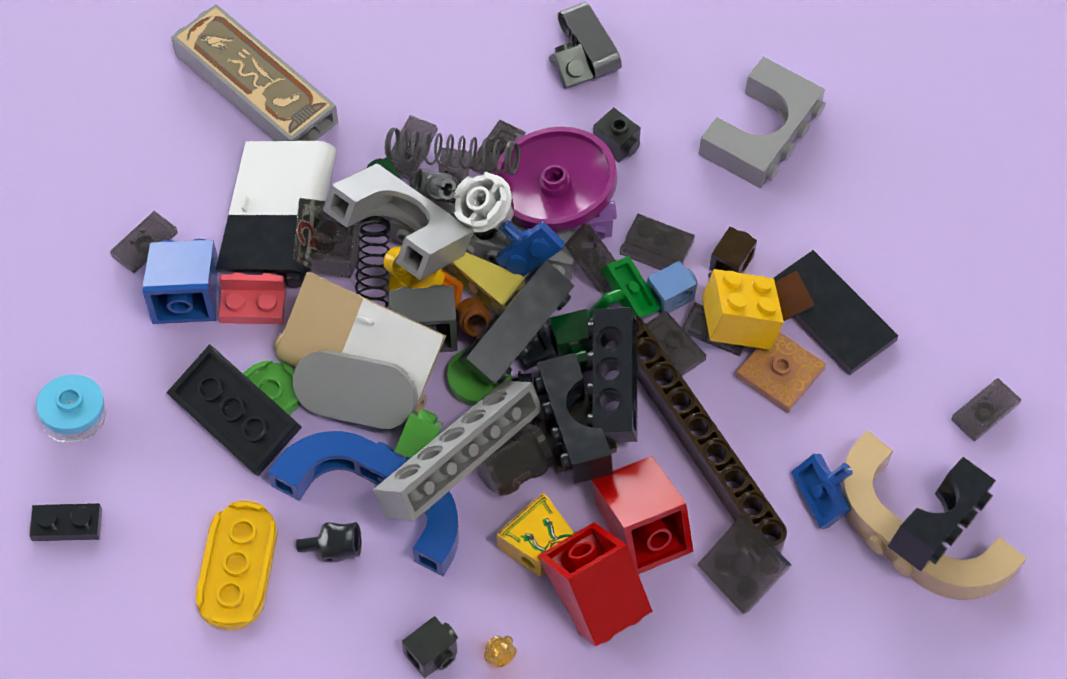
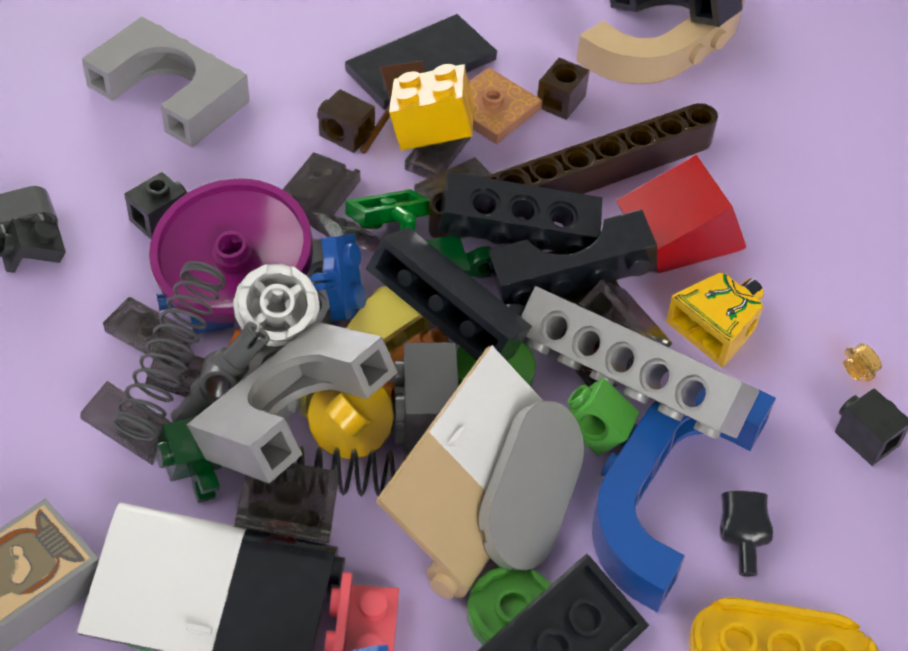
camera: 90 degrees left, 10 degrees down
(596, 583) = (777, 255): red slope -> none
(673, 286) = (386, 170): medium blue brick -> none
(744, 564) = (738, 142): clear smoke plate -> none
(805, 411) = (563, 88): none -> dark brown brick
(823, 489) = (640, 81): blue plate -> none

